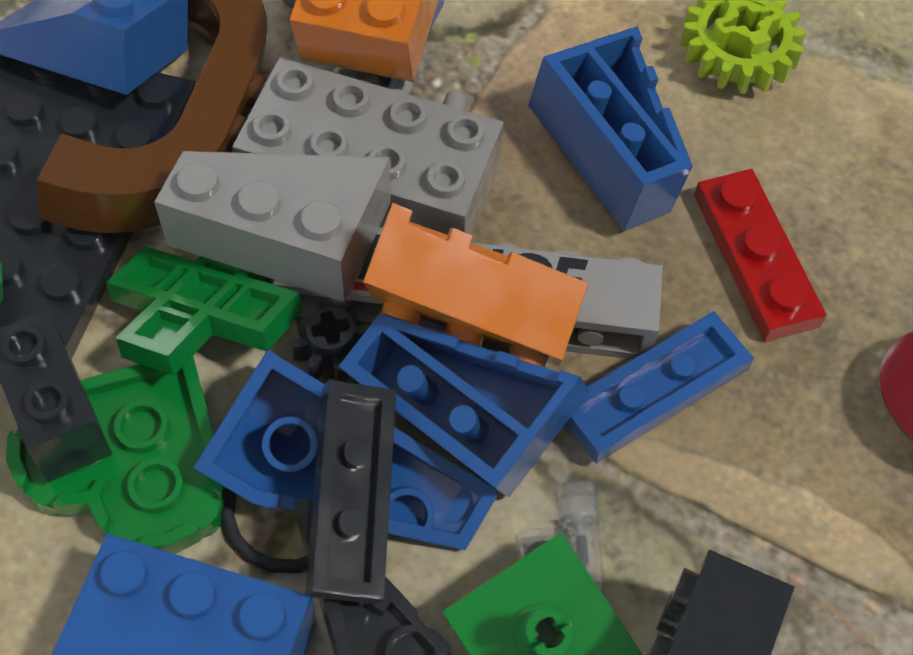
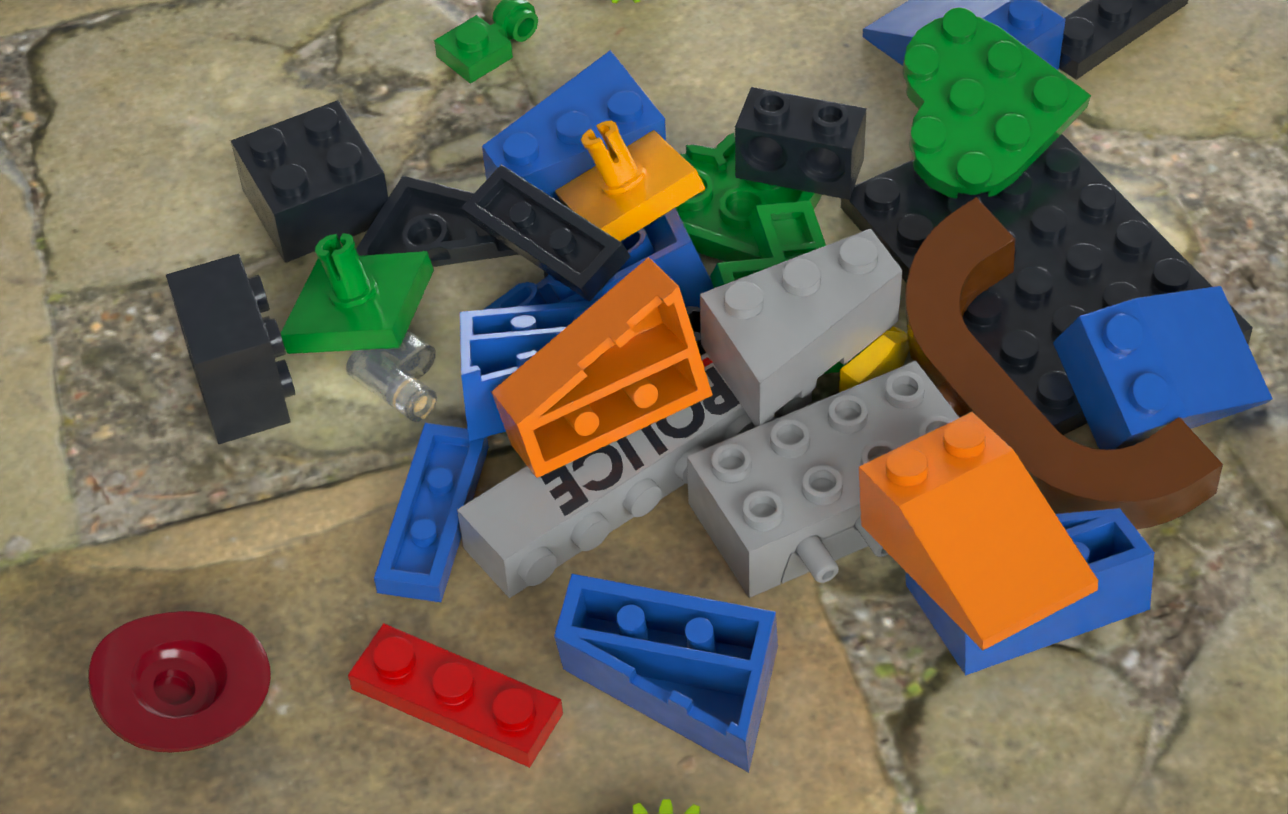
camera: 140 degrees right, 10 degrees down
(219, 496) = (630, 182): none -> light orange tile

